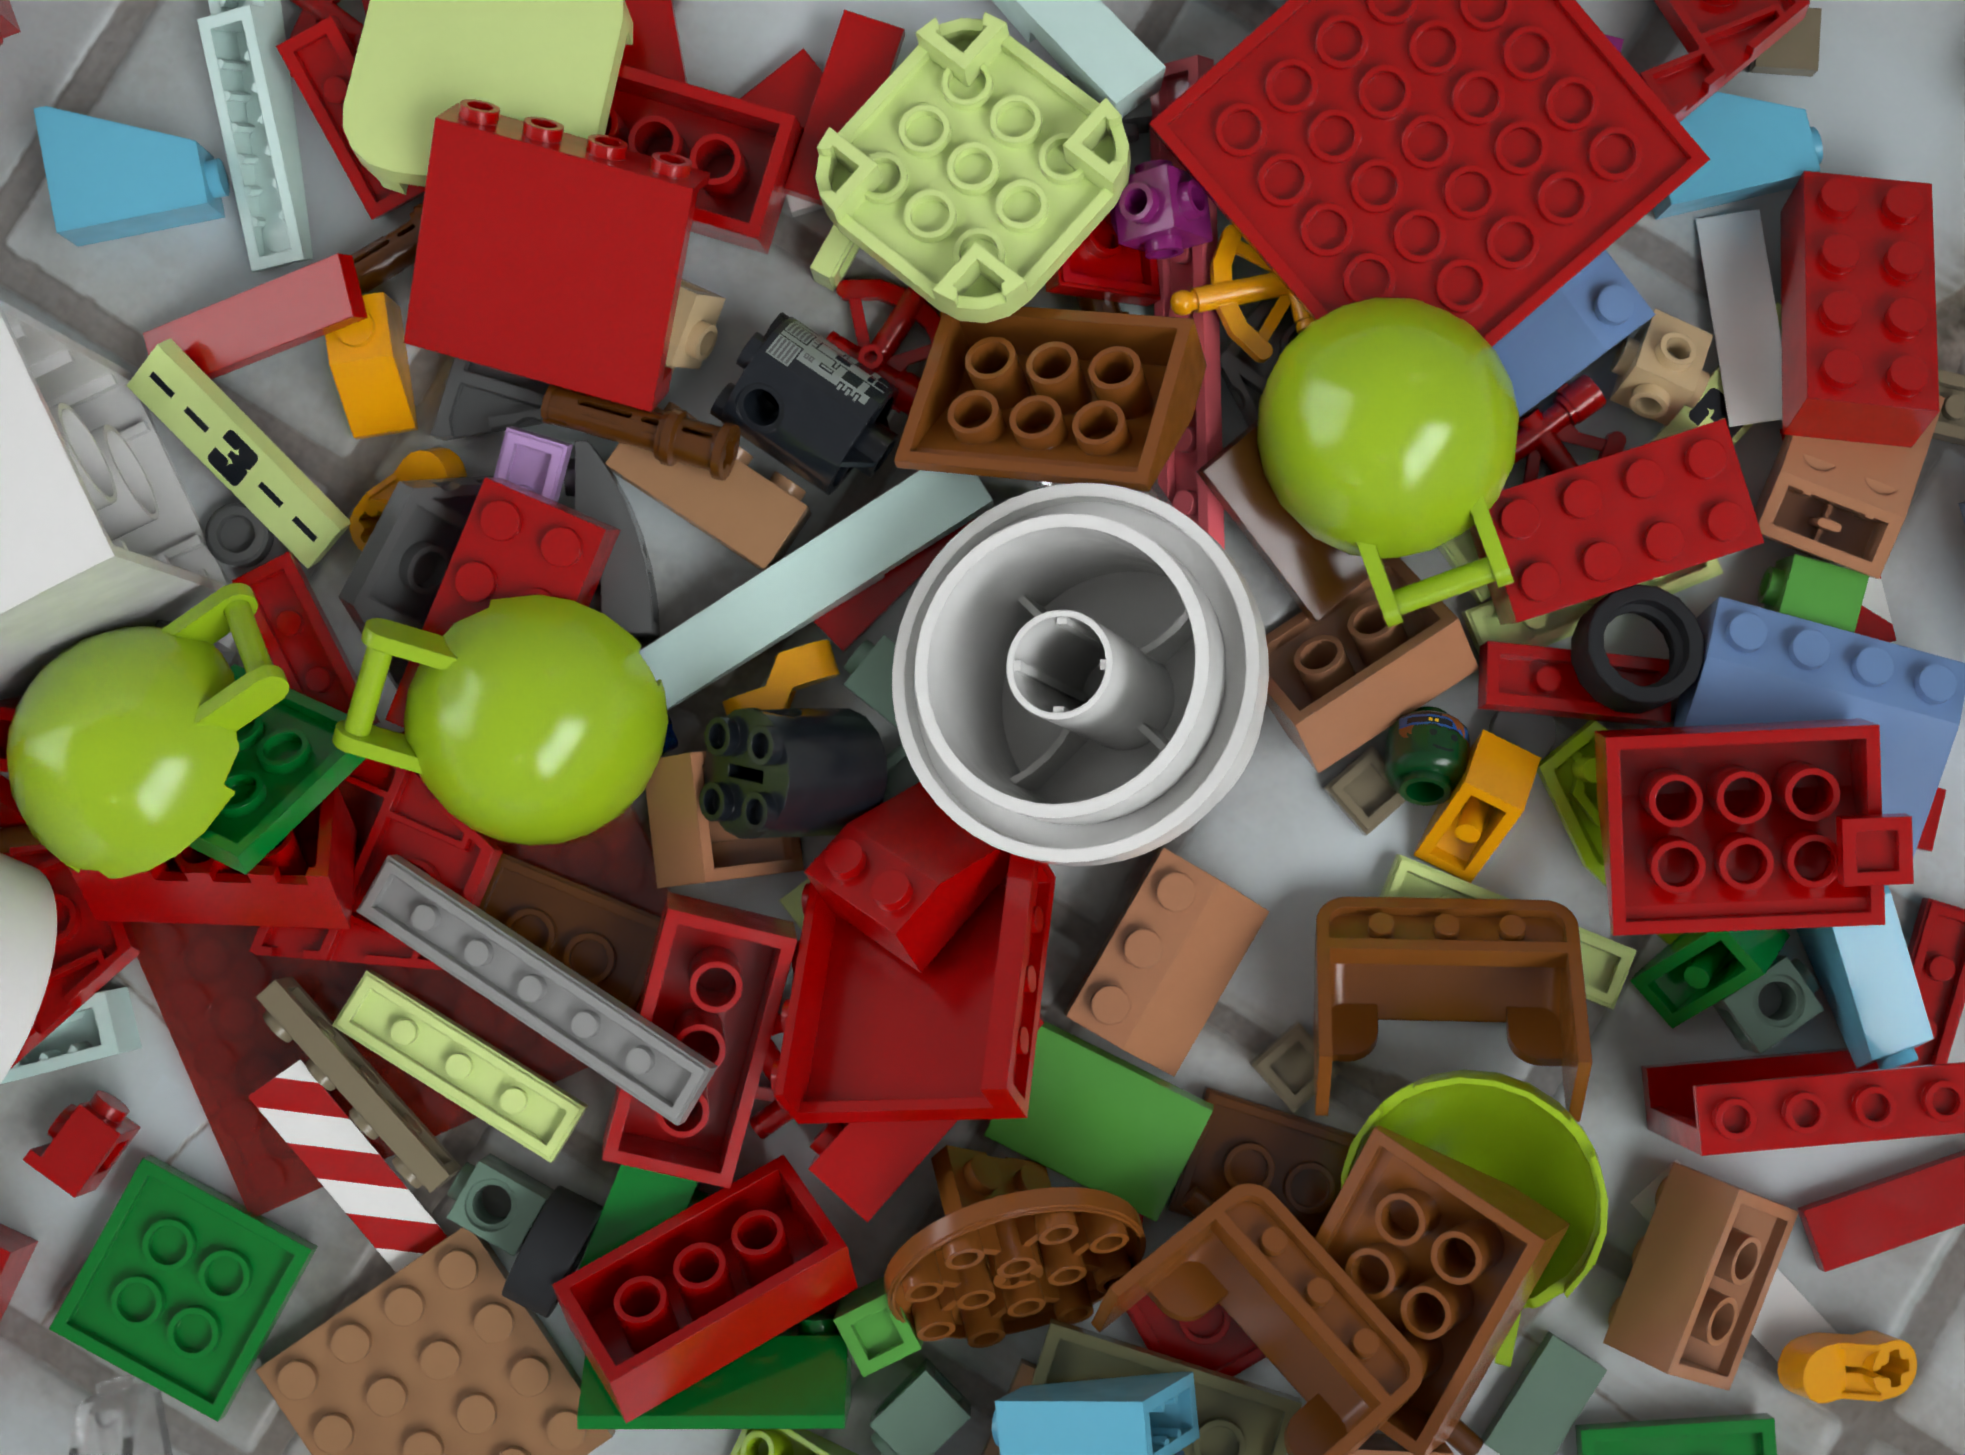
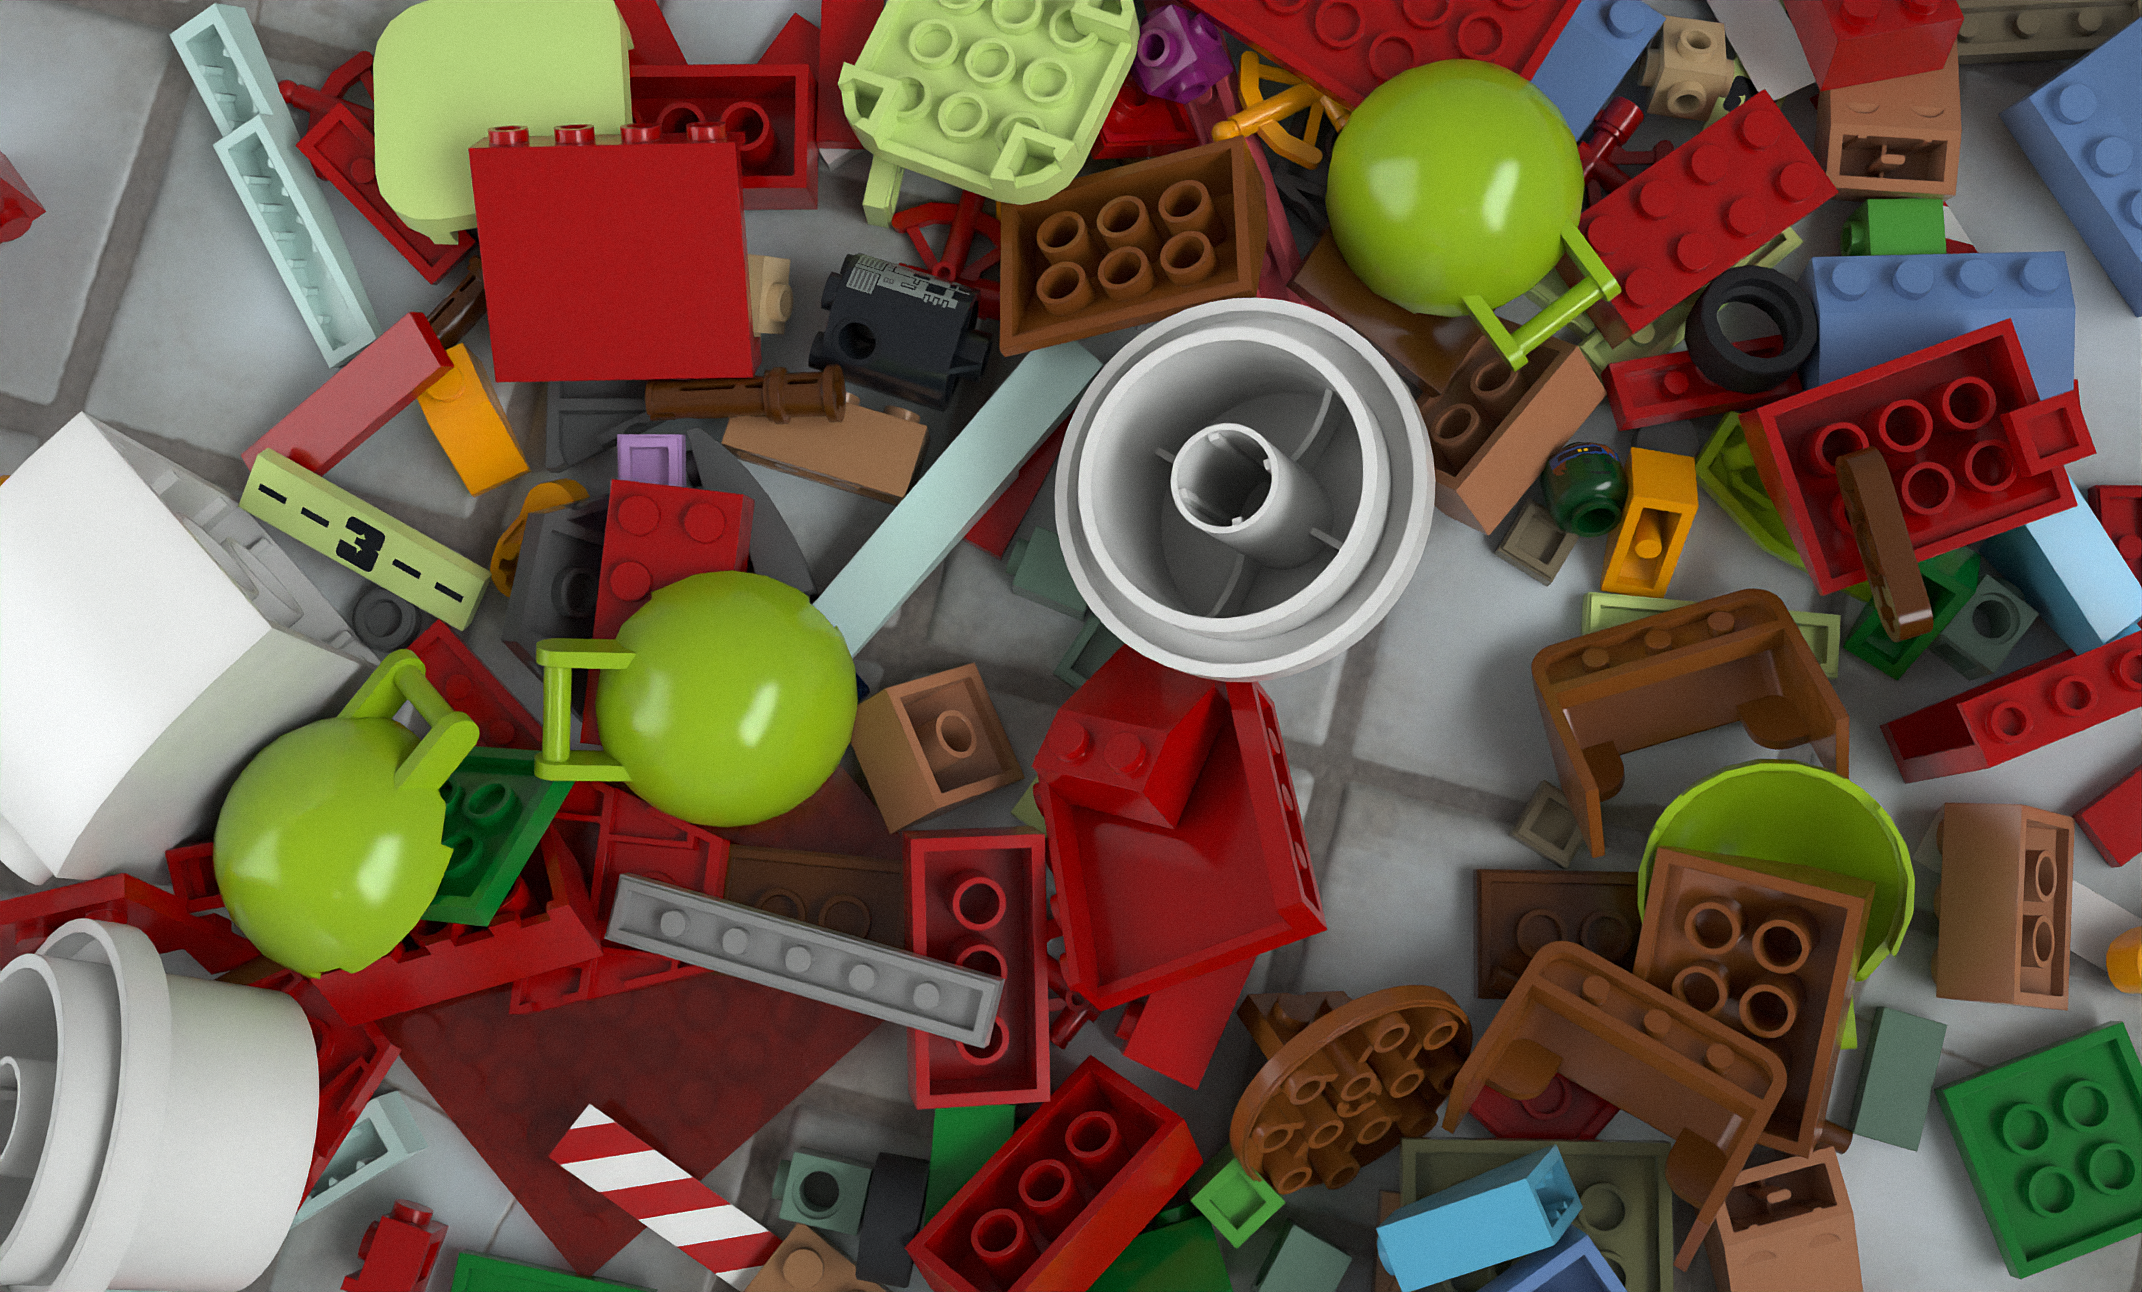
camera: 20 degrees left, 5 degrees down
(123, 178) = (183, 313): medium azure slope -> none
(339, 1065) = (630, 1098): dark tan plate -> none
(460, 1065) = (748, 1064): yellowish green tile -> none
(791, 672) = (944, 628): light orange piece -> none
(791, 771) = (988, 678): black cylinder -> none
(1104, 1122) = (1391, 930): bright green tile -> none
(1166, 962) = (1399, 758): nougat slope -> none
(1682, 906) = (1884, 544): none -> reddish brown beam

